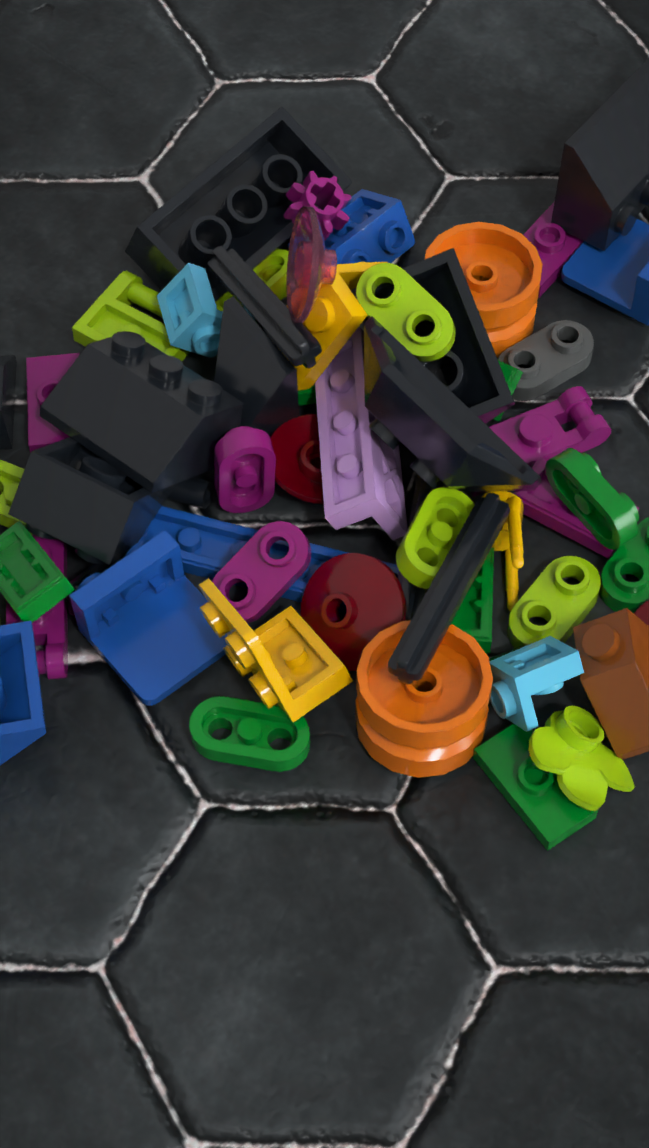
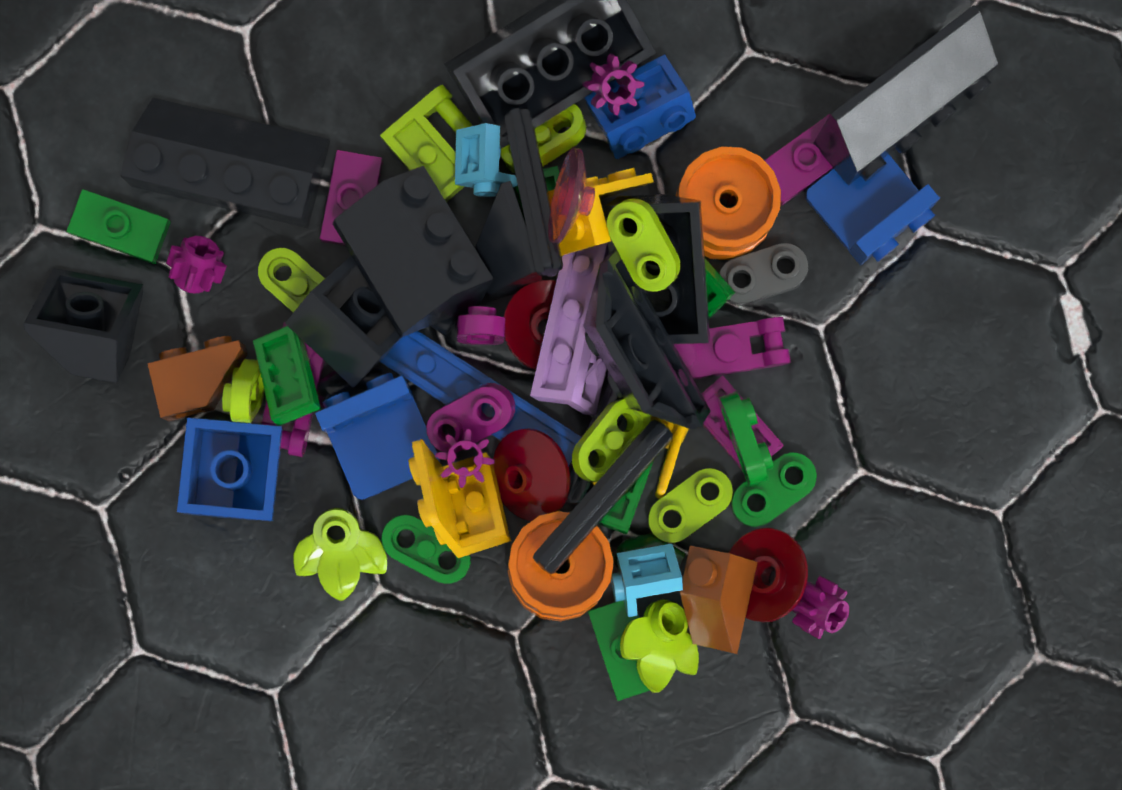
camera: 20 degrees right, 25 degrees up
(142, 778) = (342, 559): none -> lime plate
(268, 600) = (478, 459): none -> magenta gear

